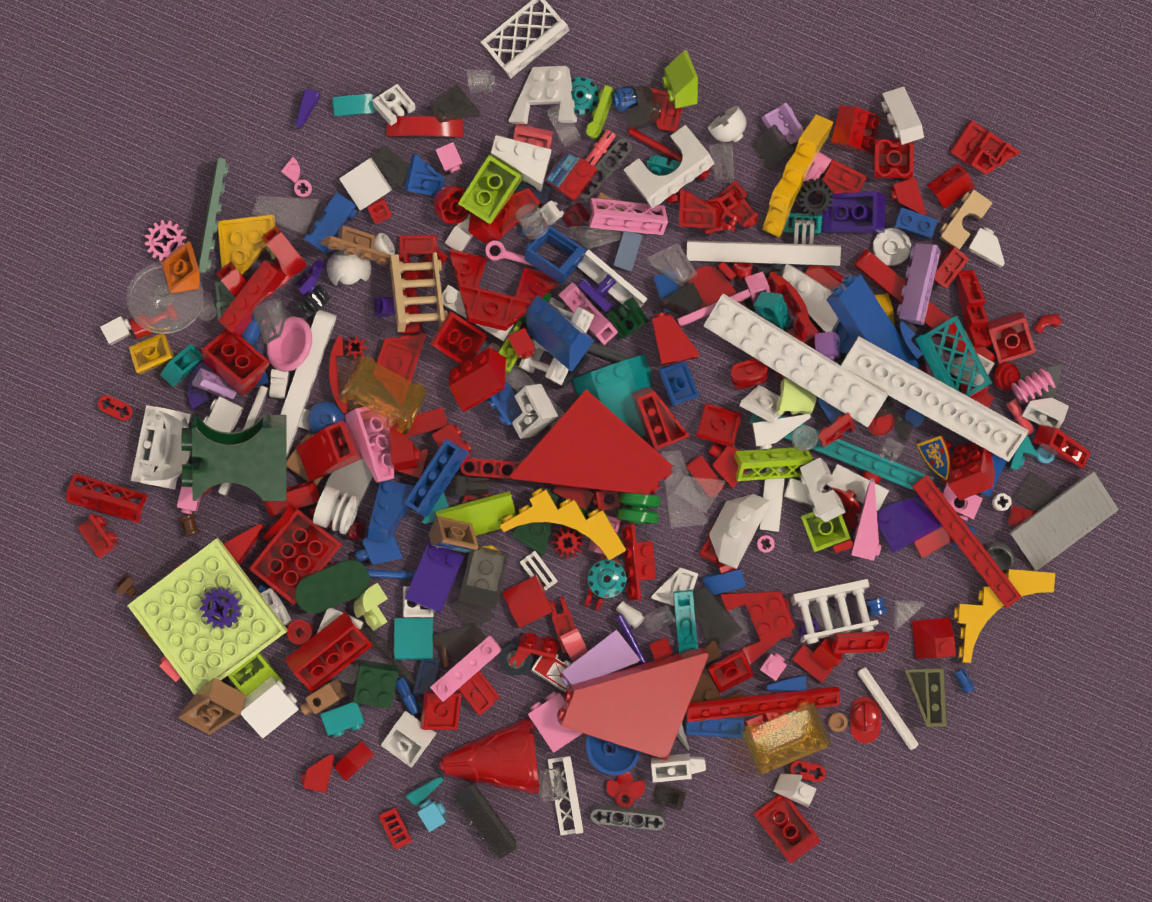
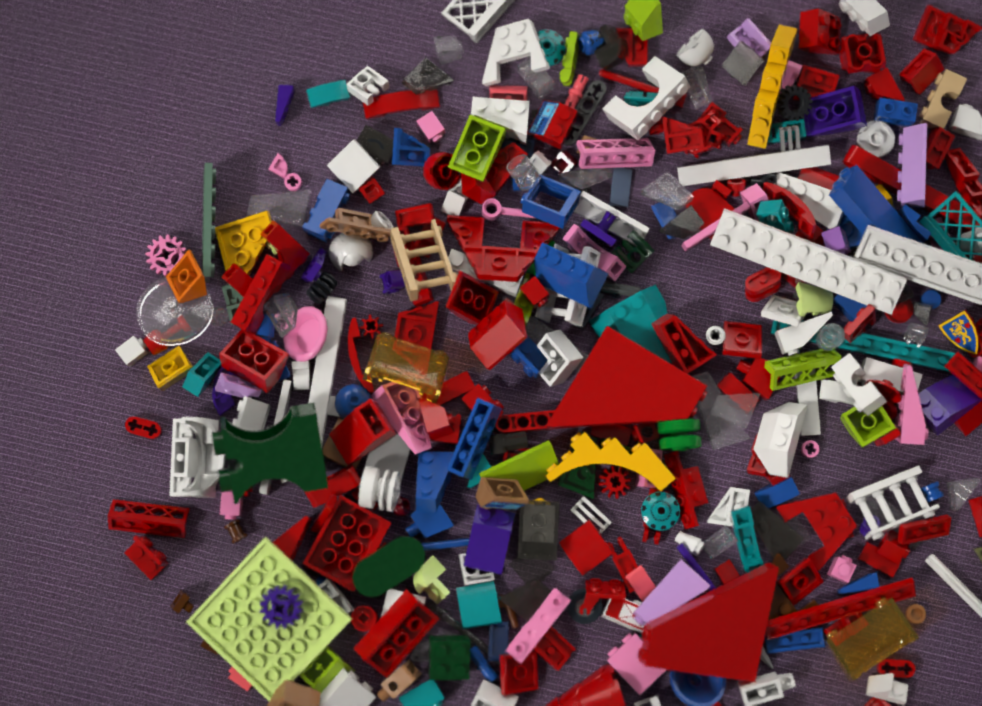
camera: 15 degrees left, 5 degrees down
(671, 341) = (681, 265): red slope -> none
(678, 383) = (693, 307): blue slope -> none
(692, 410) = (718, 331): none -> white cone
(865, 719) = (942, 606): red piece -> none

